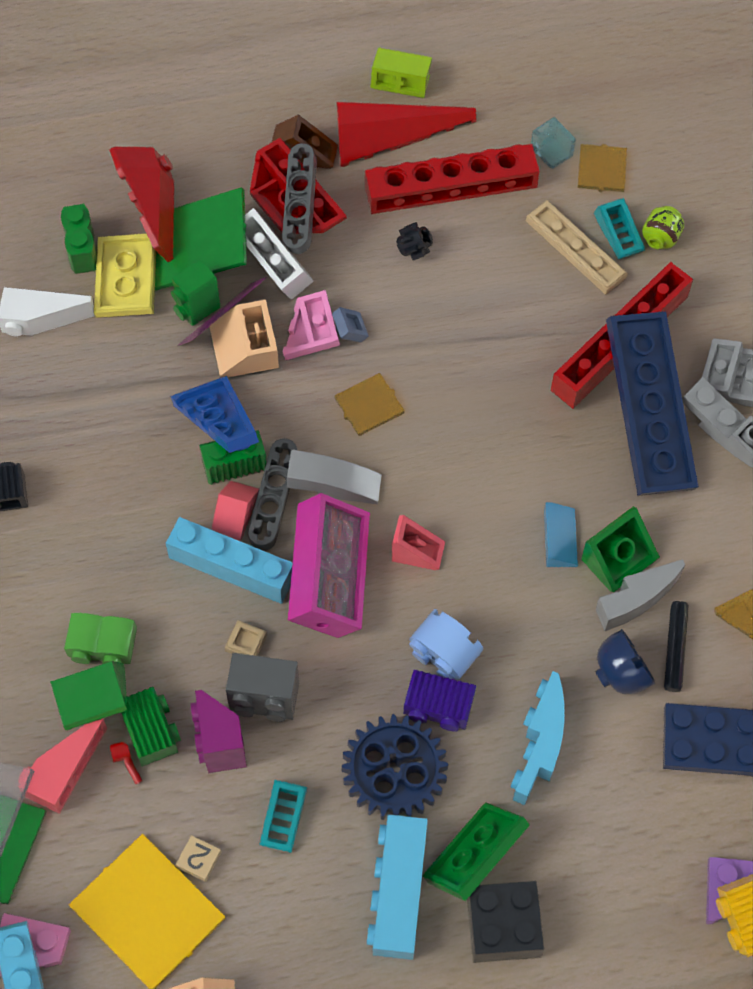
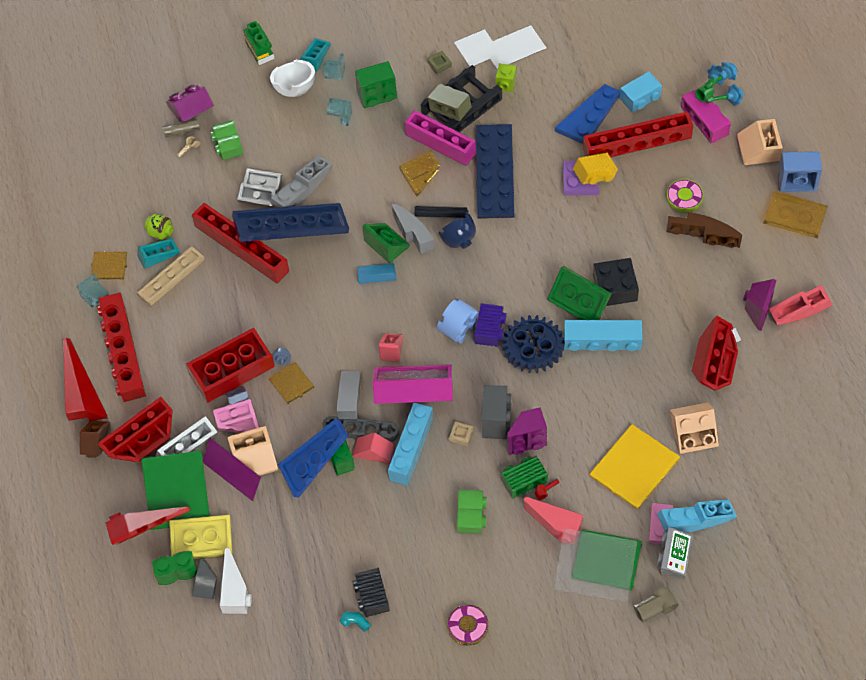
camera: 90 degrees left, 5 degrees down
(56, 277) = (205, 581): none -> dark grey slope
(91, 694) = (509, 505): green slope -> none
(195, 293) = (220, 484): green brick -> none
(198, 858) = (600, 441): tan tile -> none
(280, 786) = (559, 404): teal slope -> none
(299, 198) = (150, 418): dark grey beam -> none
(399, 314) = (230, 365): none -> red brick
(400, 72) = (33, 384): lime hinge -> none
(412, 388) = (281, 356): none -> sand blue plate
(414, 241) = (172, 363): black gear -> none
(546, 729) = (500, 269): medium azure slope -> none

